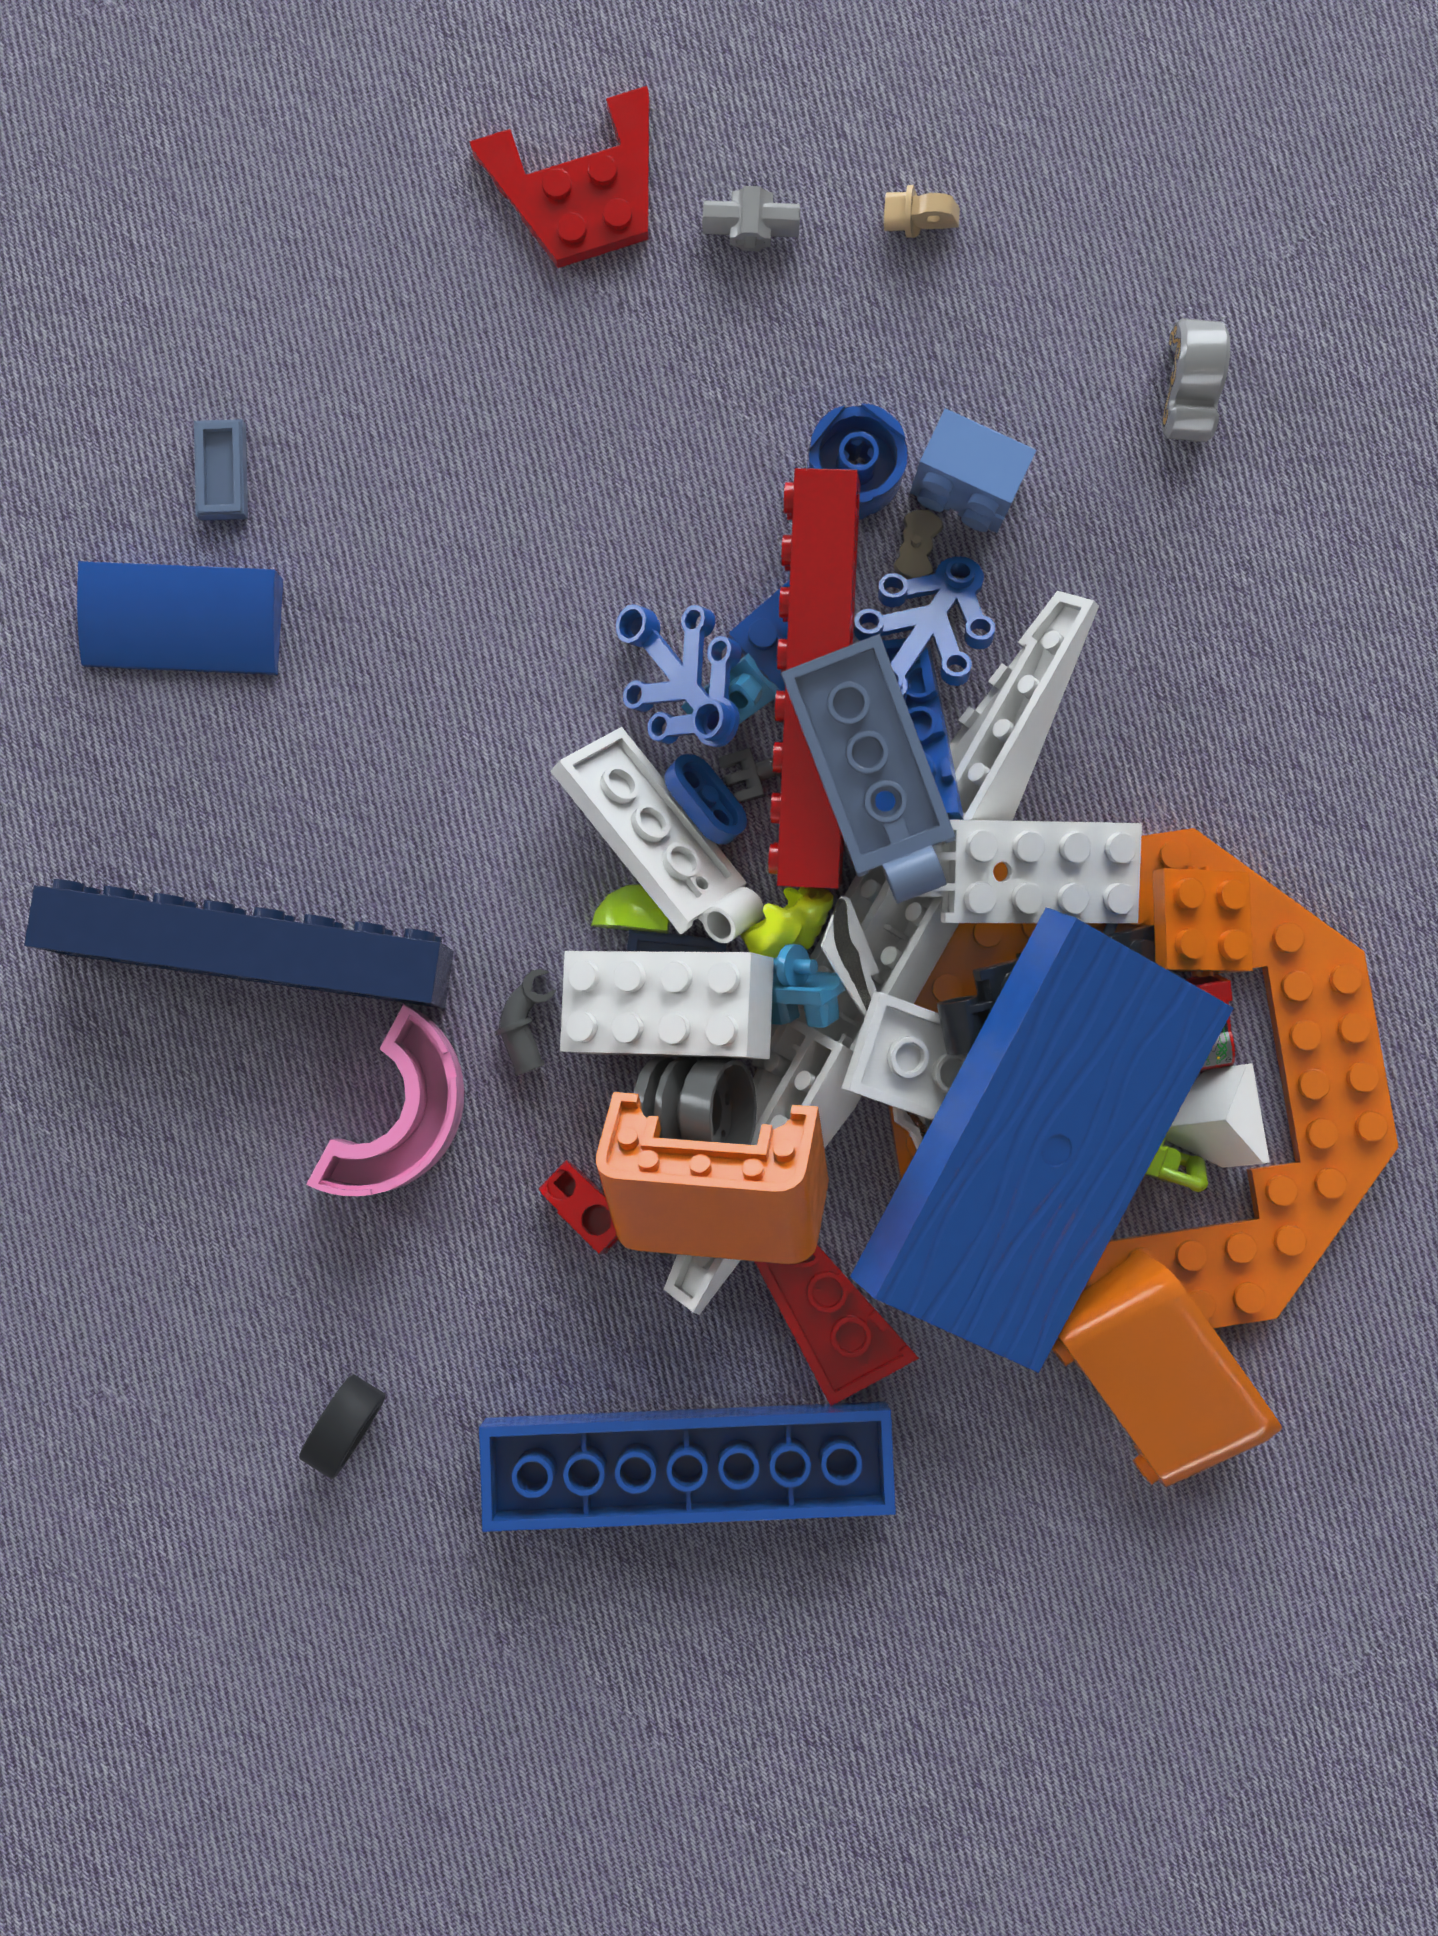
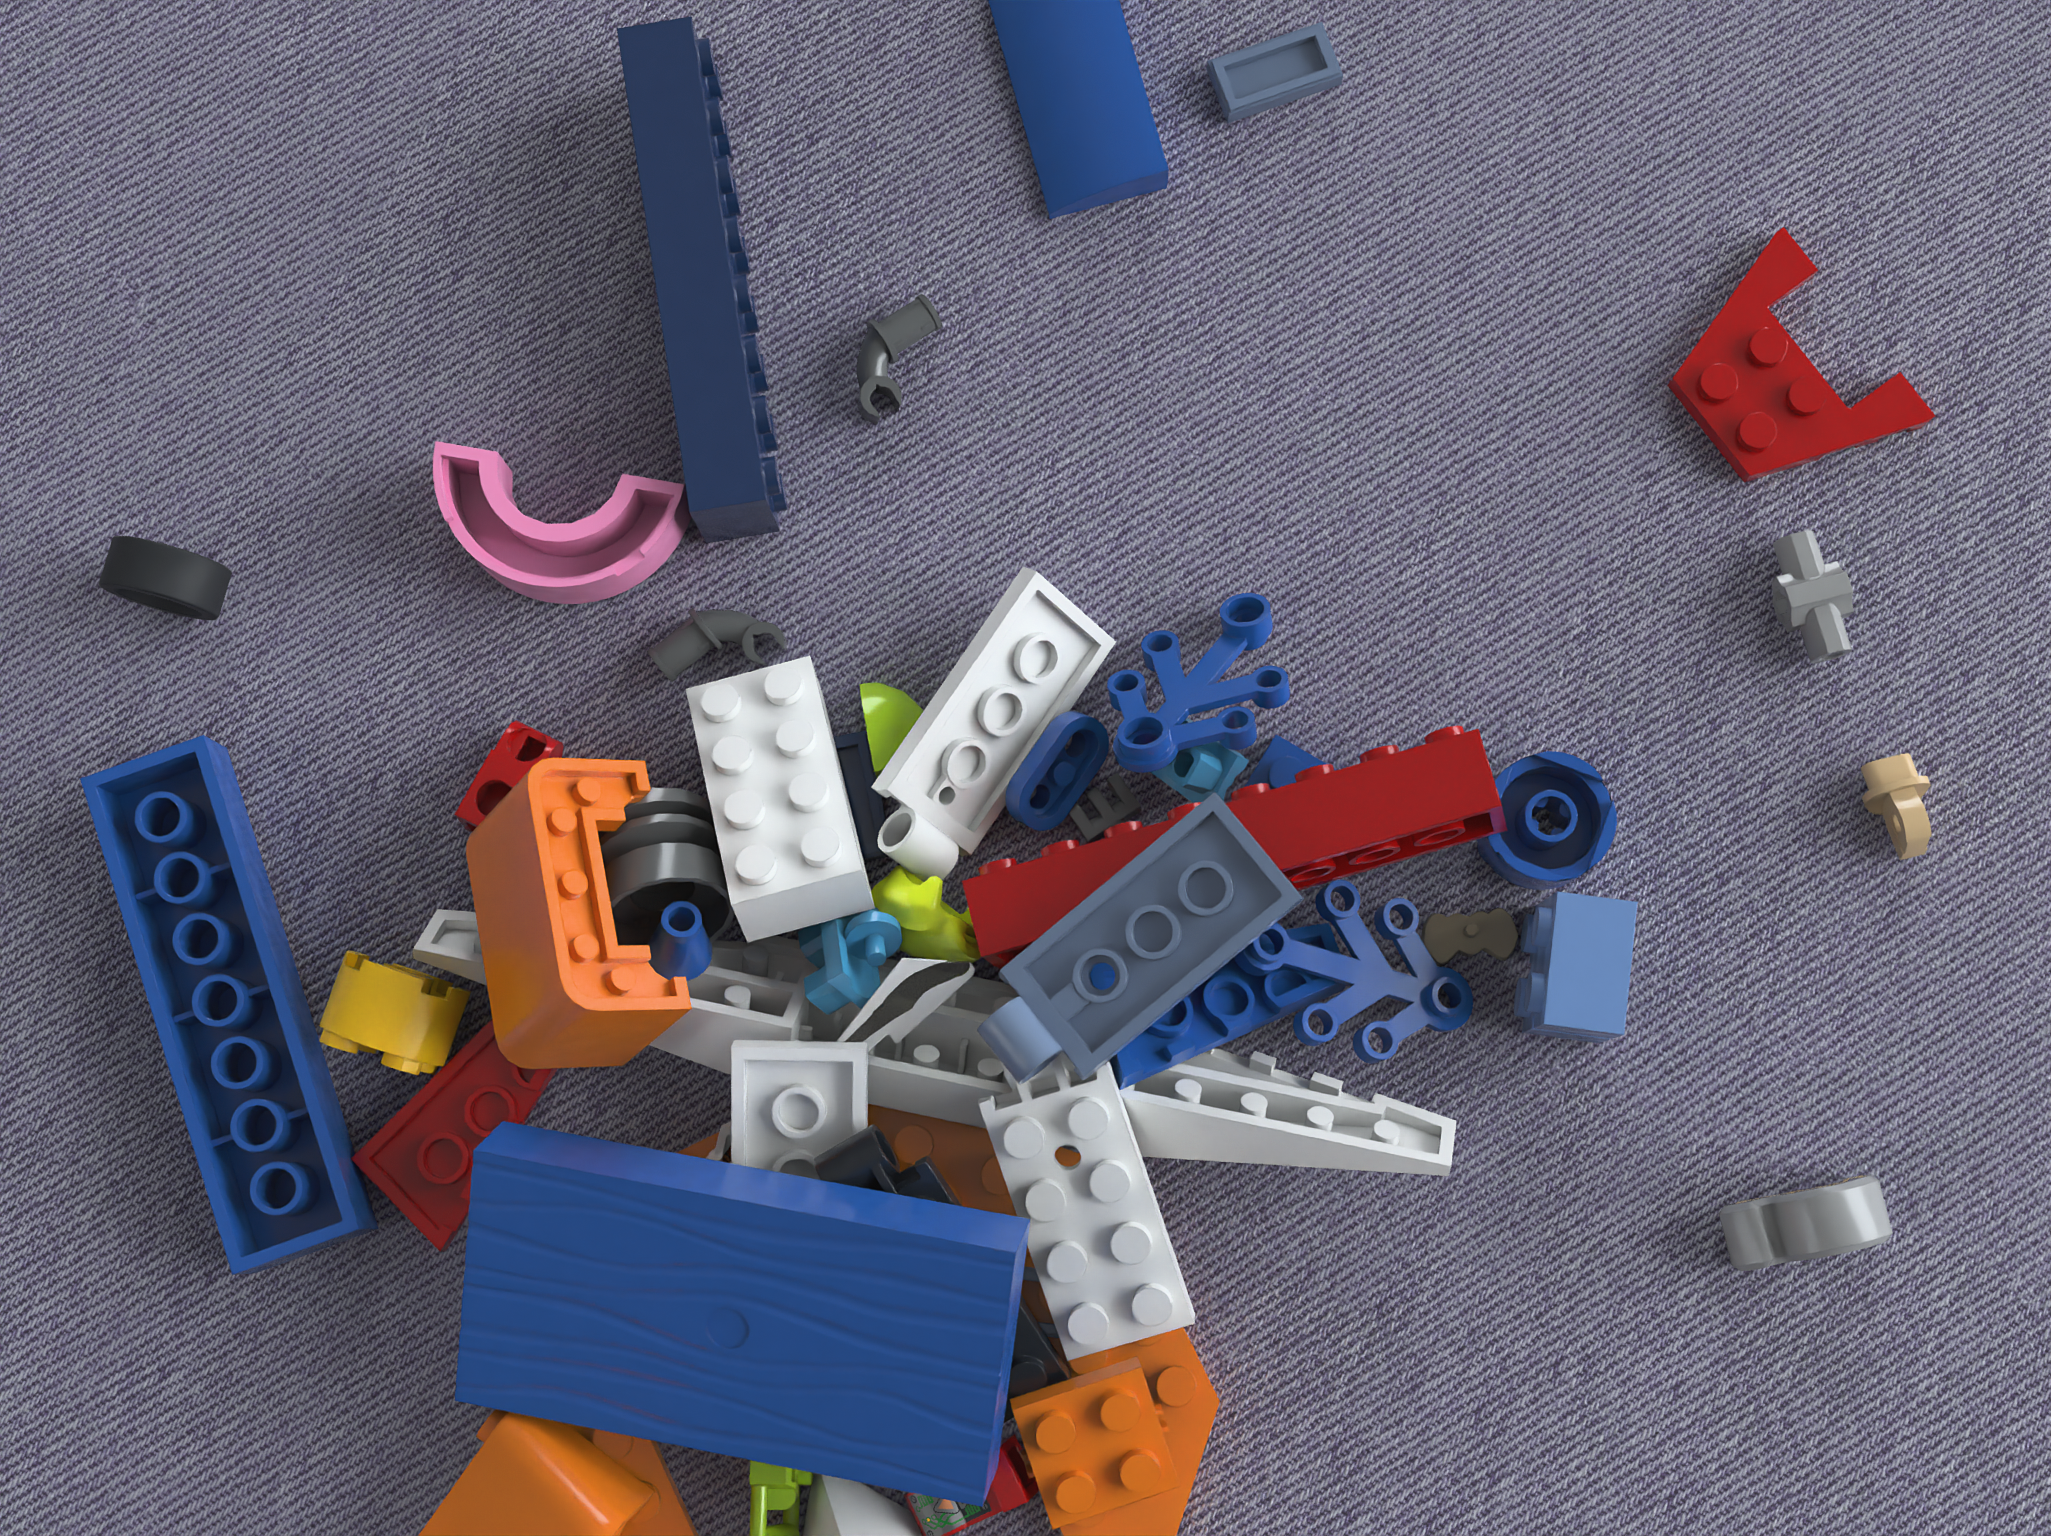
camera: 80 degrees right, 5 degrees down
(338, 828) = (882, 346): none -> dark grey piece
(735, 1342) = (394, 1012): none -> yellow brick
(753, 1108) = (680, 943): none -> blue cone

